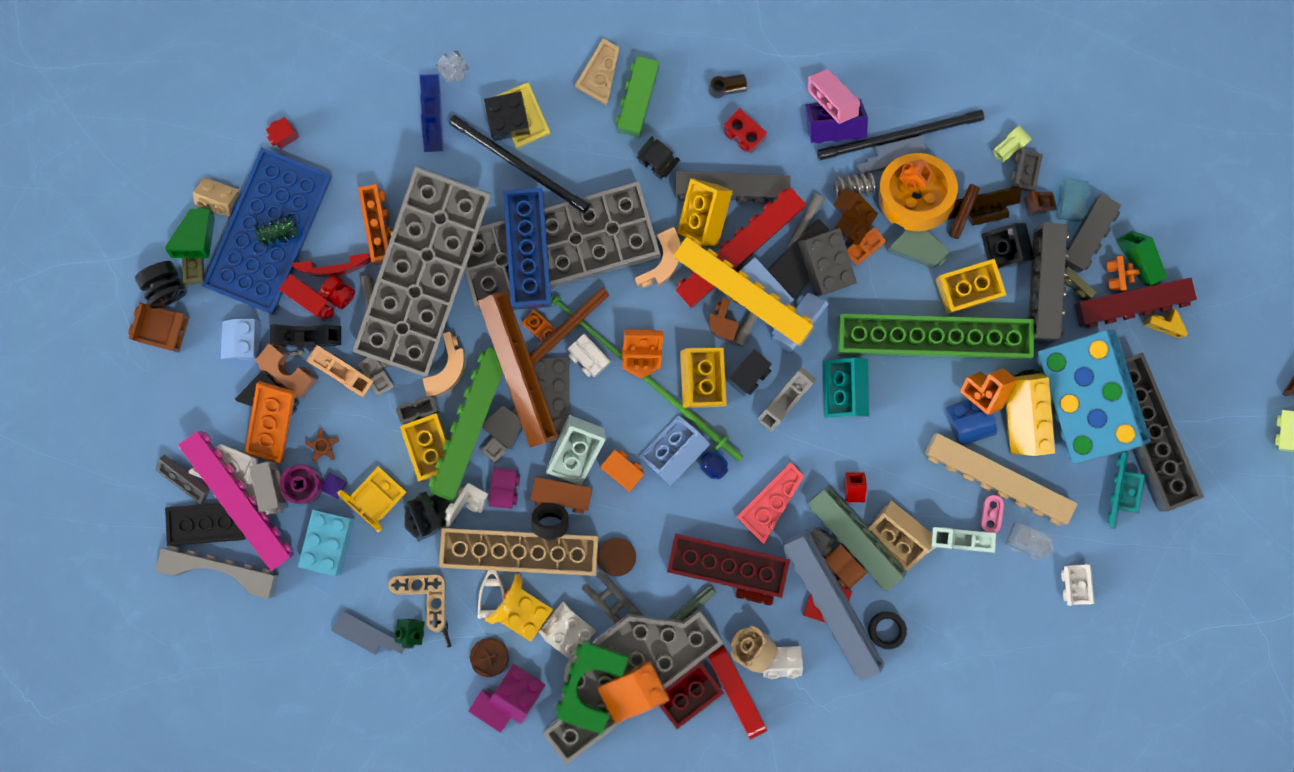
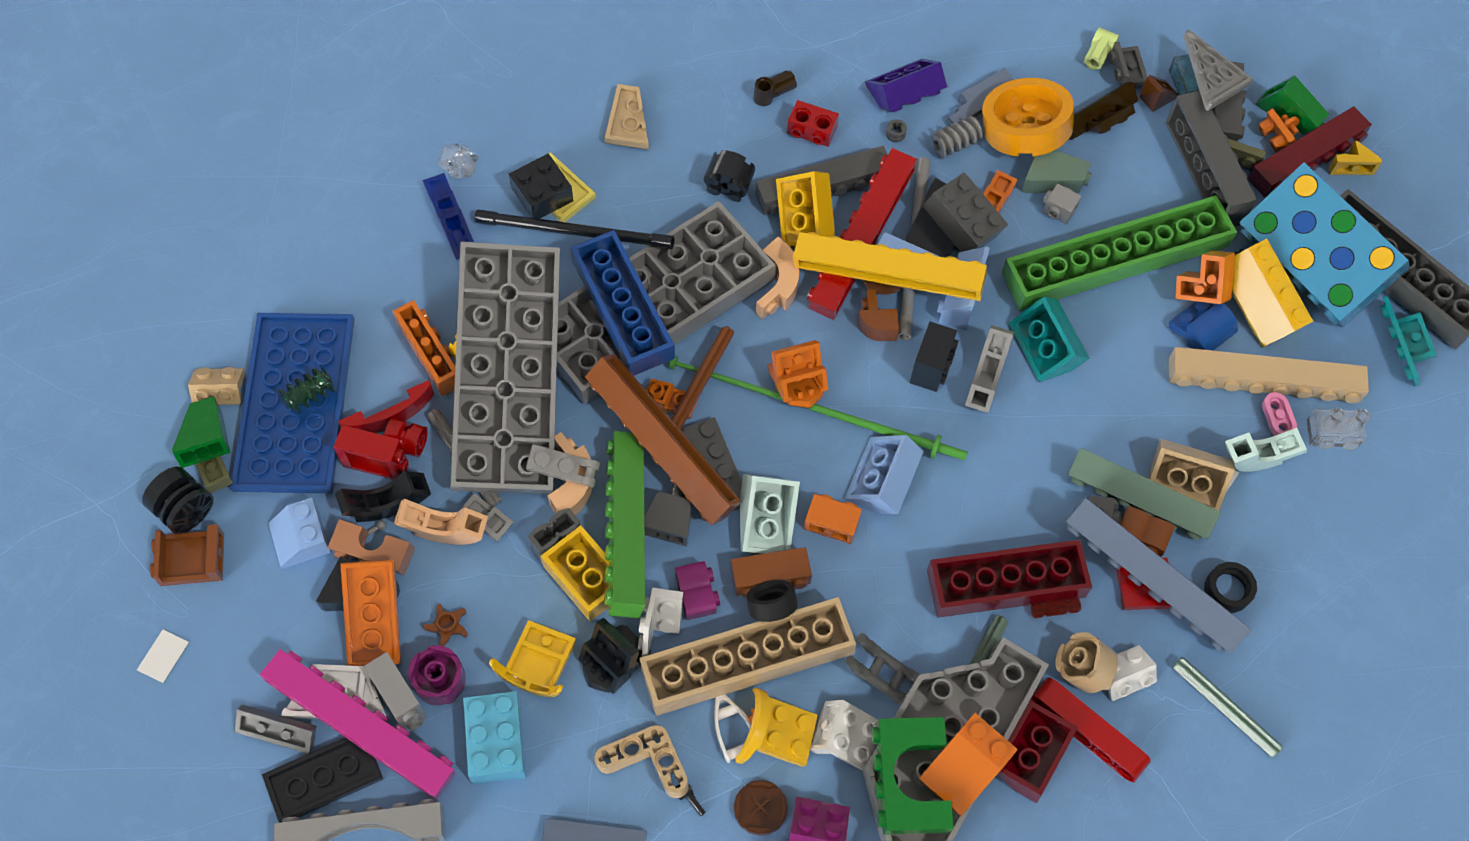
camera: 25 degrees left, 20 degrees down
(123, 394) = (162, 656): none -> white sticker
(281, 133) = (278, 291): red brick -> none
(333, 485) = (478, 667): dark purple tile -> none
(409, 632) = (645, 810): dark green brick -> none
(438, 363) = (561, 465): none -> light grey plate
(494, 449) = (666, 552): light grey tile -> none
(588, 356) = (737, 406): white brick -> none
(617, 557) = (872, 619): reddish brown tile -> none
(638, 96) = (680, 127): bright green brick -> none
(703, 377) = (882, 380): yellow brick -> none
(714, 465) = (938, 473): clear blue head -> none
(766, 508) = (1022, 499): coral wing -> none
(814, 155) = (896, 124): none -> dark grey bush
(833, 96) = (894, 56): bright pink brick -> none
(833, 151) = (1041, 41): black piece -> none
(841, 712) = (1228, 707): none -> axle
(855, 487) = (1113, 438): red brick -> none
(856, 216) = (972, 157): reddish brown brick -> none
(910, 275) = (1061, 203): none -> light grey brick
(916, 174) = (1019, 97): orange brick -> none
(964, 211) = (1086, 121): reddish brown axle -> none
(970, 286) = (1131, 190): yellow brick -> none
(1008, 245) = (1148, 142): black slope -> none
(1078, 584) = (1417, 455): white bracket -> none
(1088, 210) = (1214, 73): none -> light grey tile

